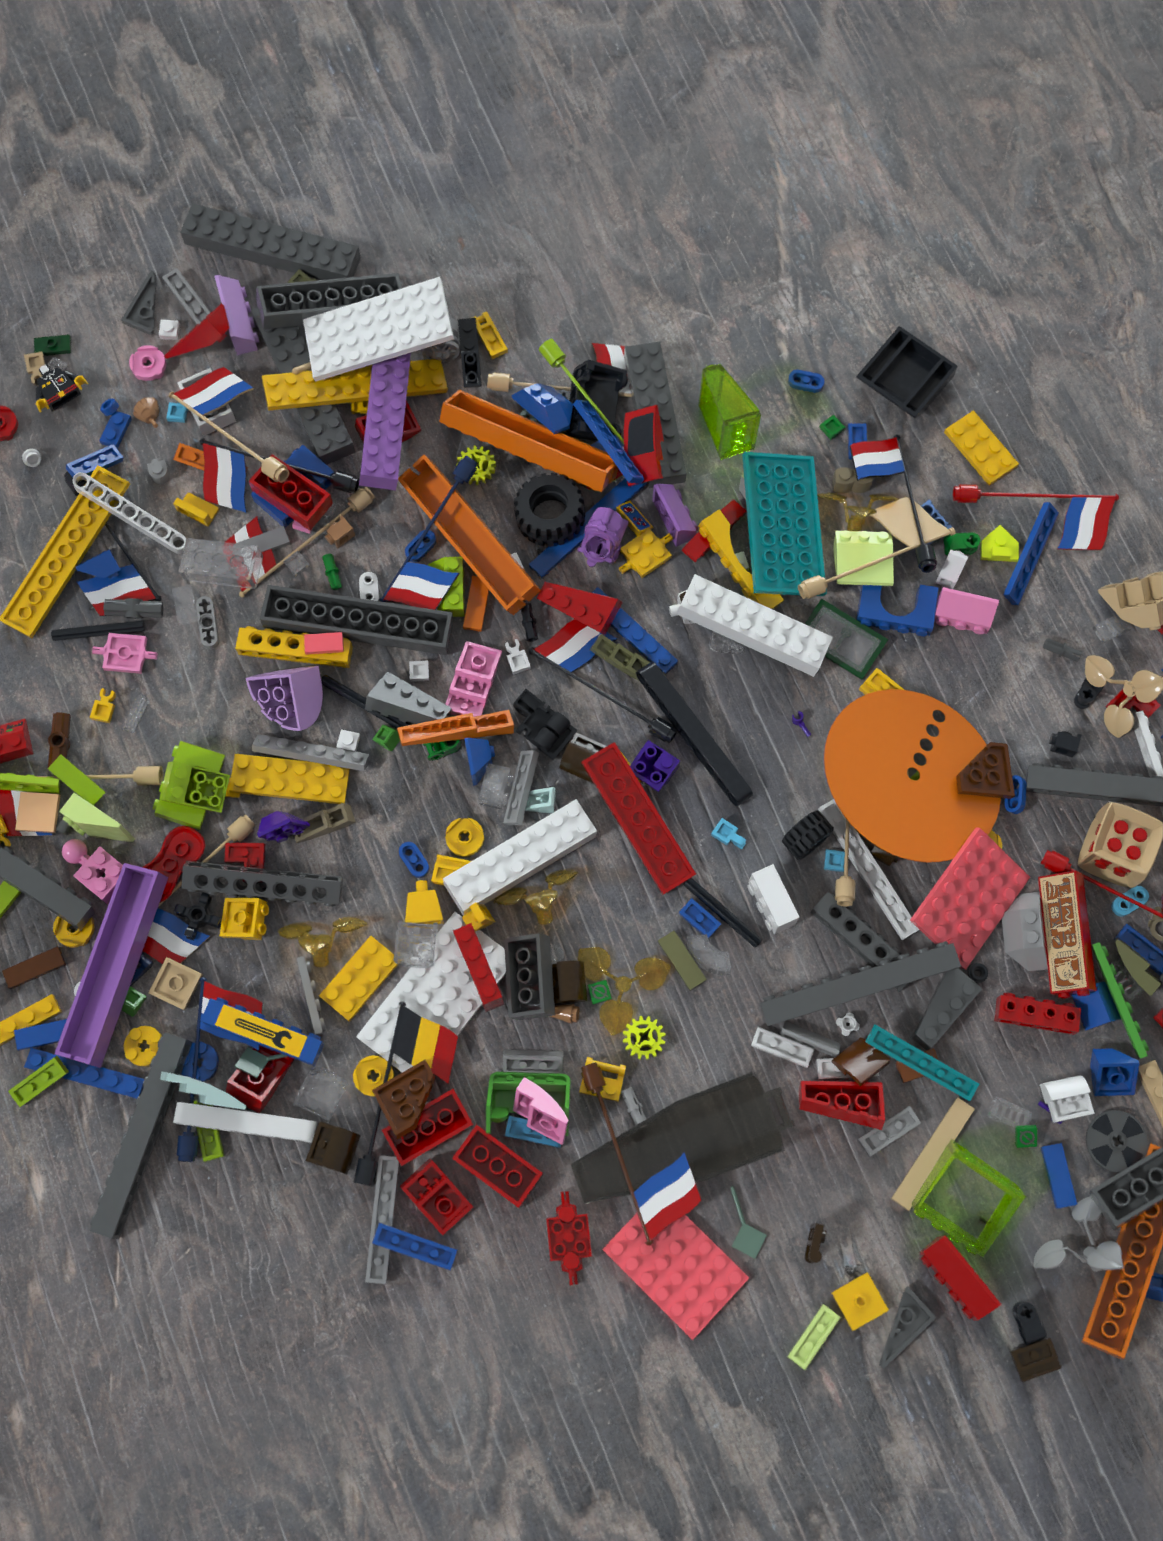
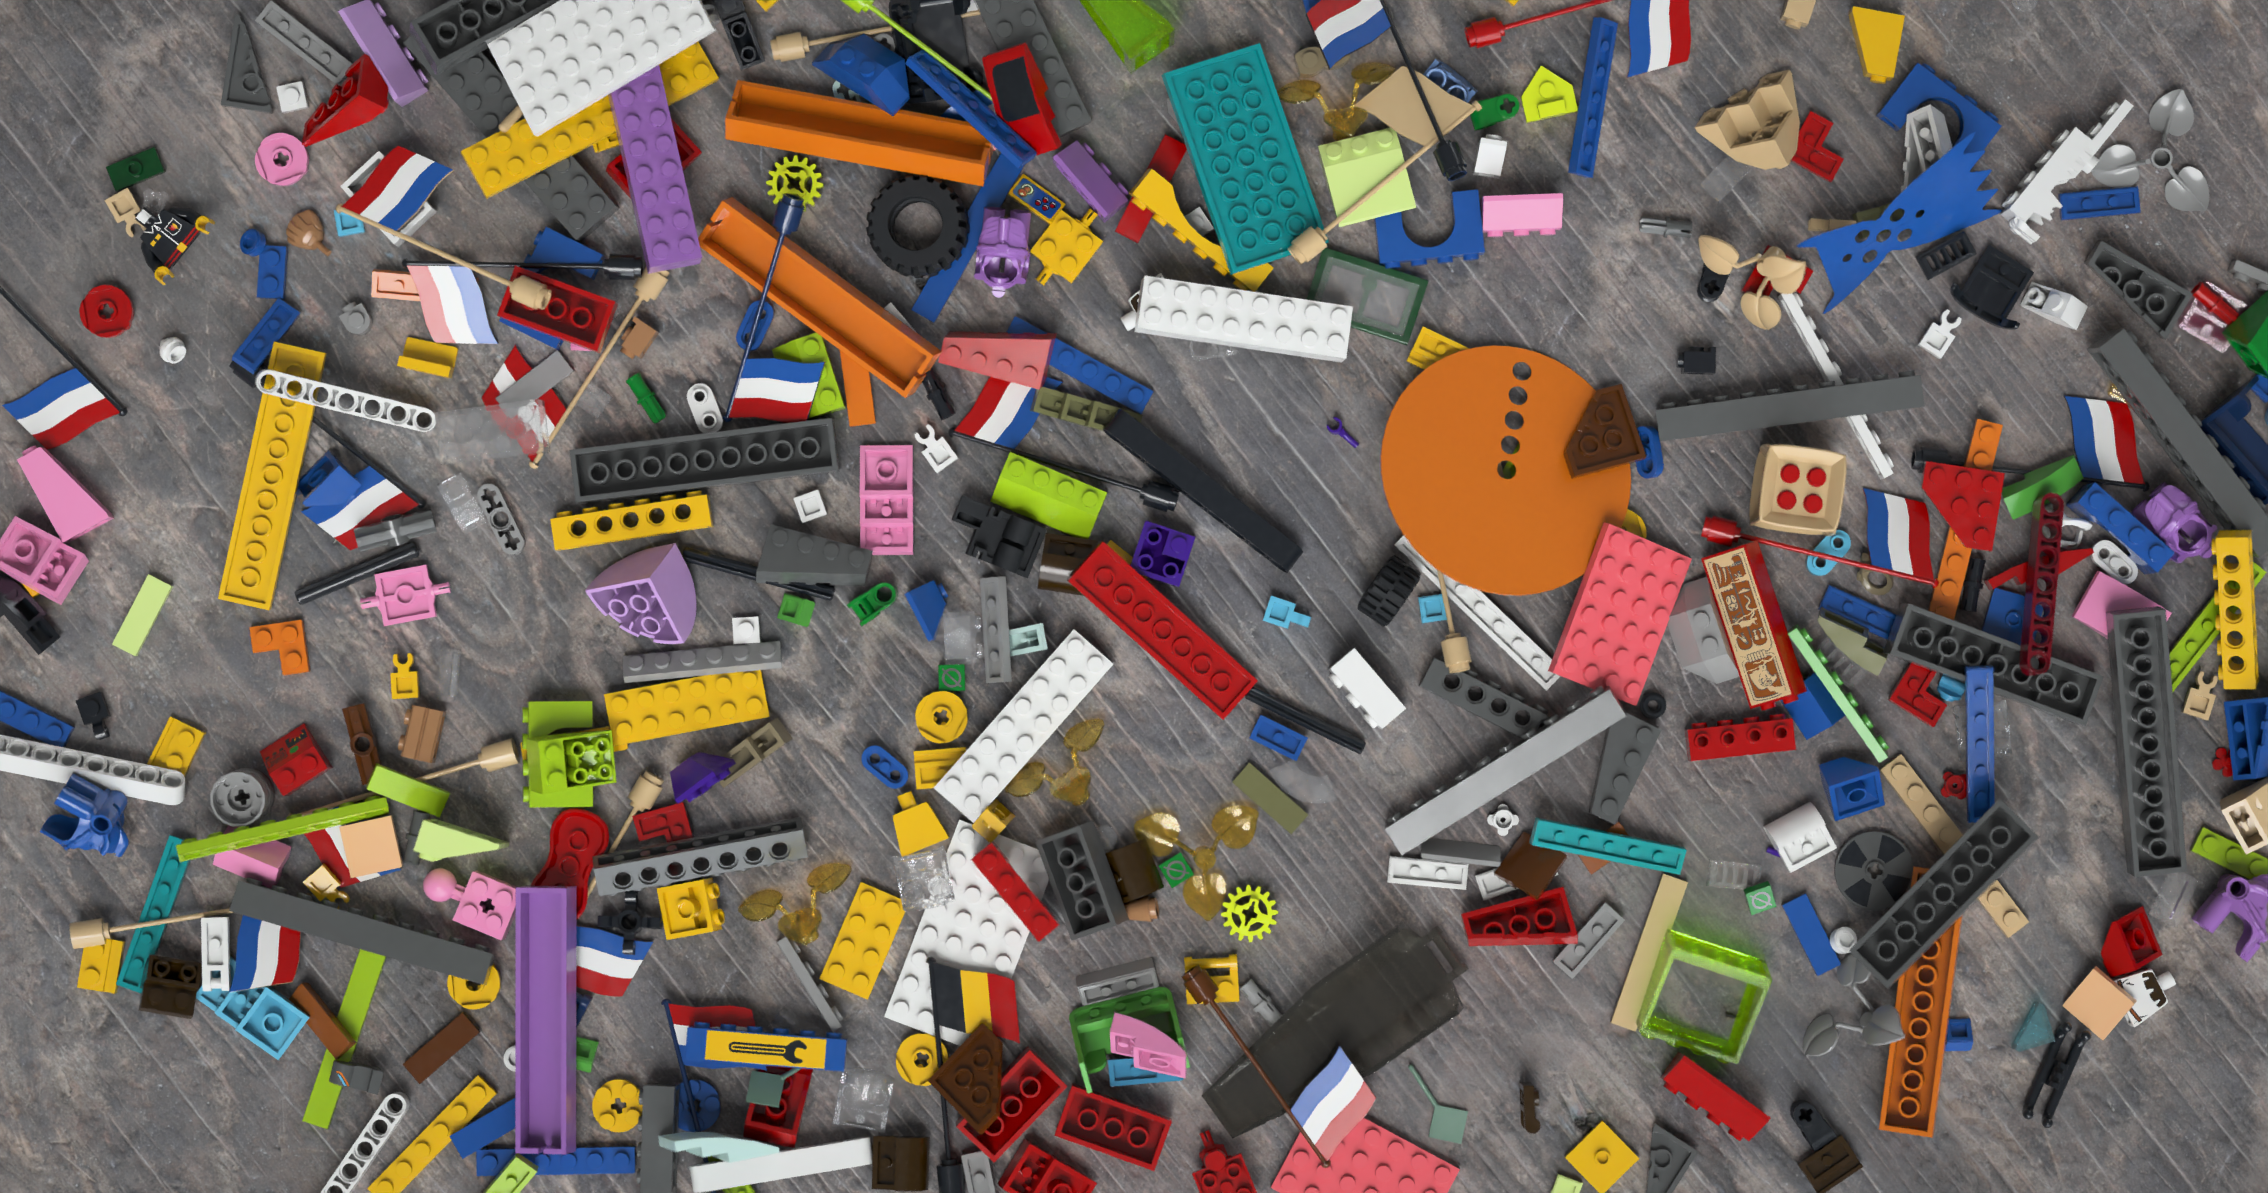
camera: 15 degrees left, 15 degrees up
(35, 661) = (288, 639): none -> orange plate
(101, 746) = (422, 733): none -> medium nougat brick
(175, 983) = (631, 1016): tan plate -> none
(323, 643) = (672, 510): coral tile -> none
(457, 728) = (888, 578): orange slope -> none
(480, 812) = (951, 677): none -> green tile
(585, 708) = (1048, 496): none -> lime slope
(1082, 1186) = (1843, 940): none -> white tile

